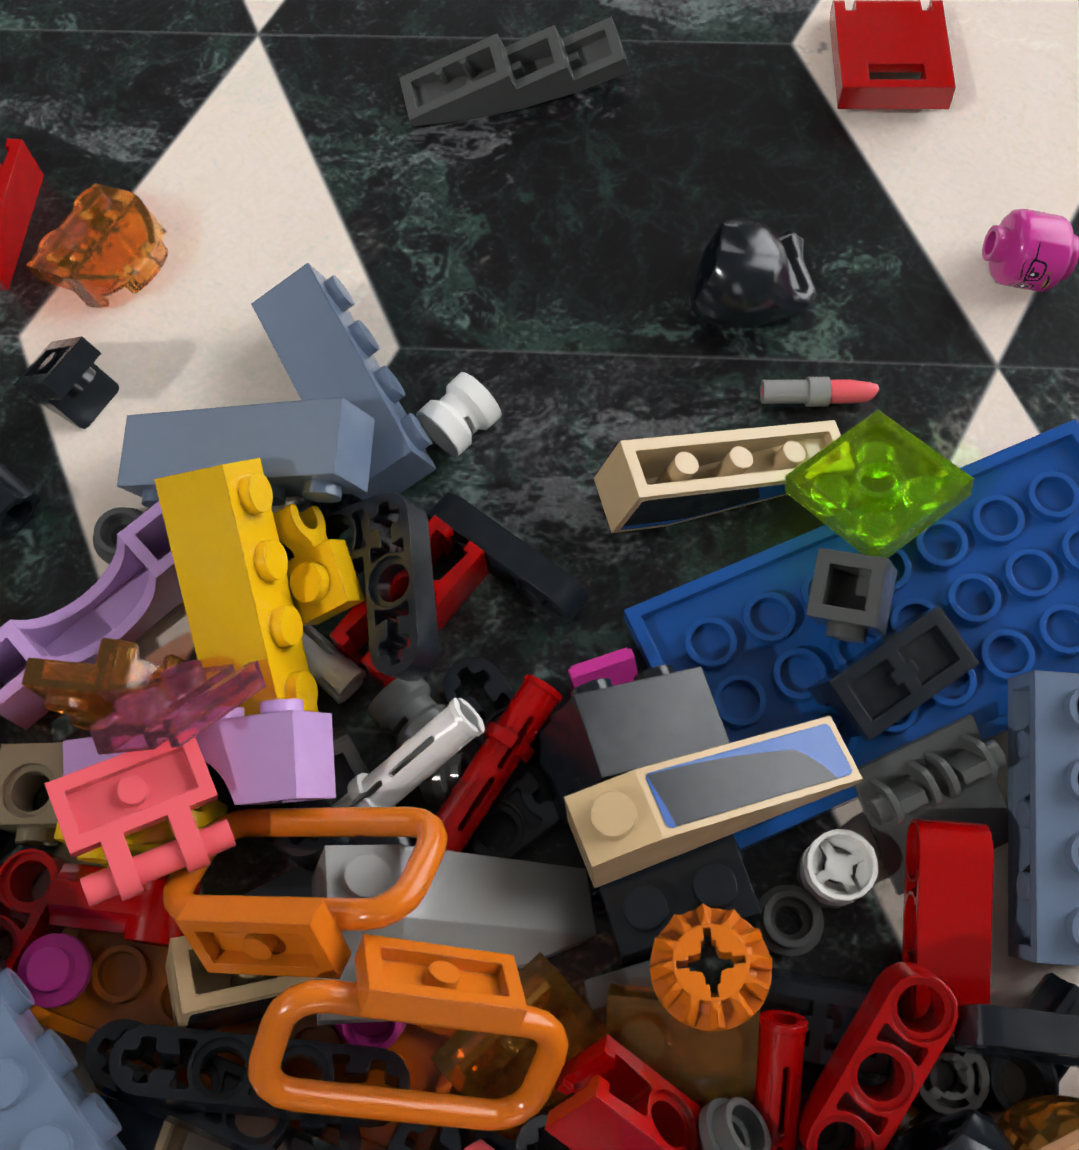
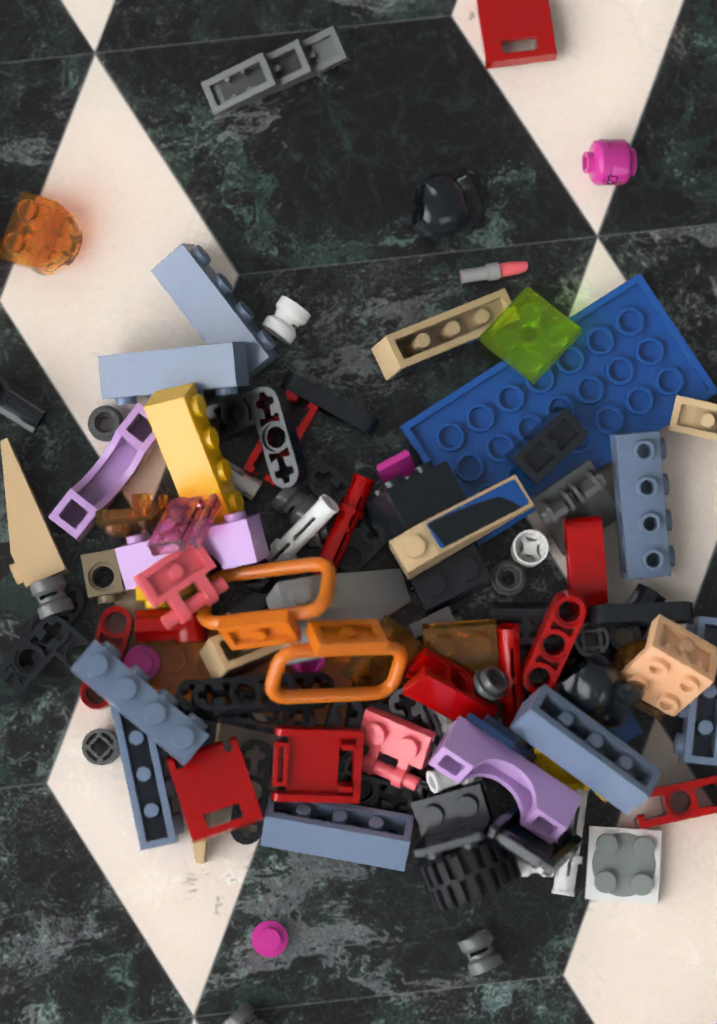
camera: 20 degrees left, 15 degrees up
(69, 381) = (42, 329): black slope -> none
(321, 570) = (234, 434): yellow plate -> none
(685, 992) = (484, 617): orange gear -> none
(851, 594) = (521, 405): dark grey brick -> none

